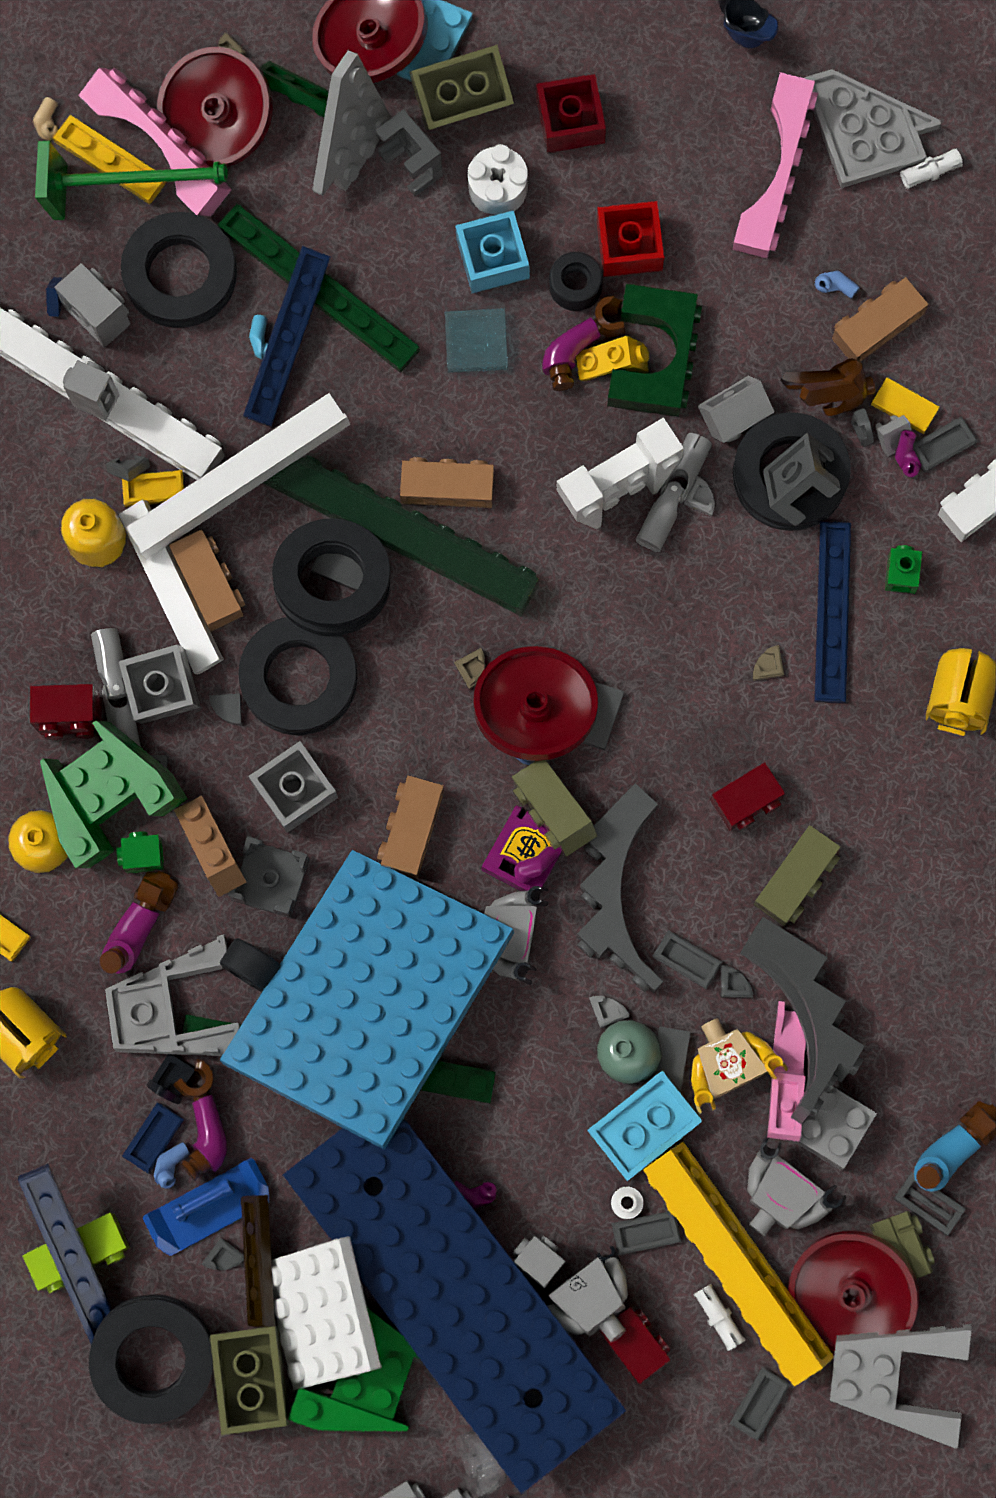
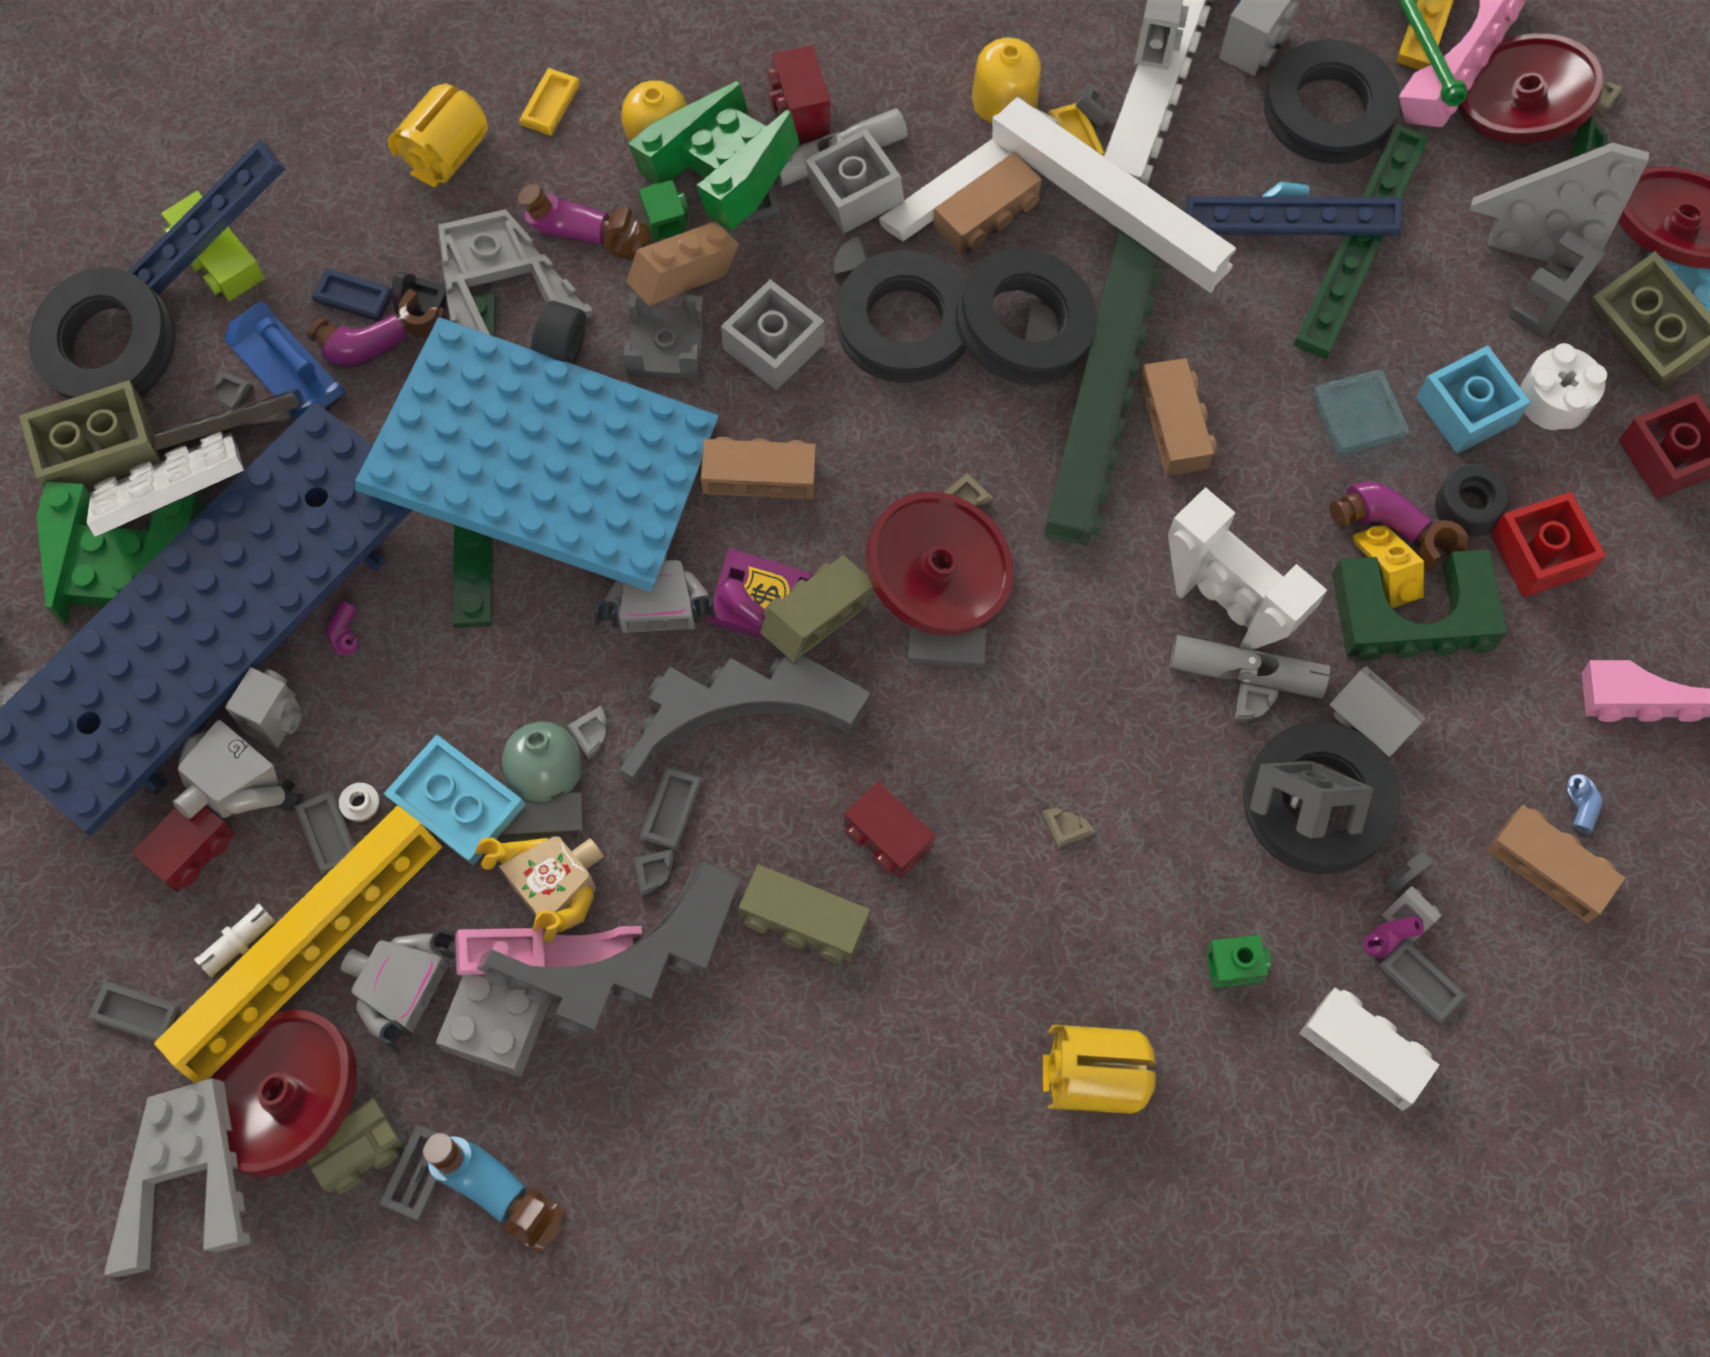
camera: 70 degrees right, 10 degrees down
(166, 1165) = (313, 310): medium blue arm -> none
(819, 390) = (1454, 834): reddish brown piece -> none
(832, 612) = (1156, 889): dark blue tile -> none
(900, 401) = (1456, 929): yellow tile -> none

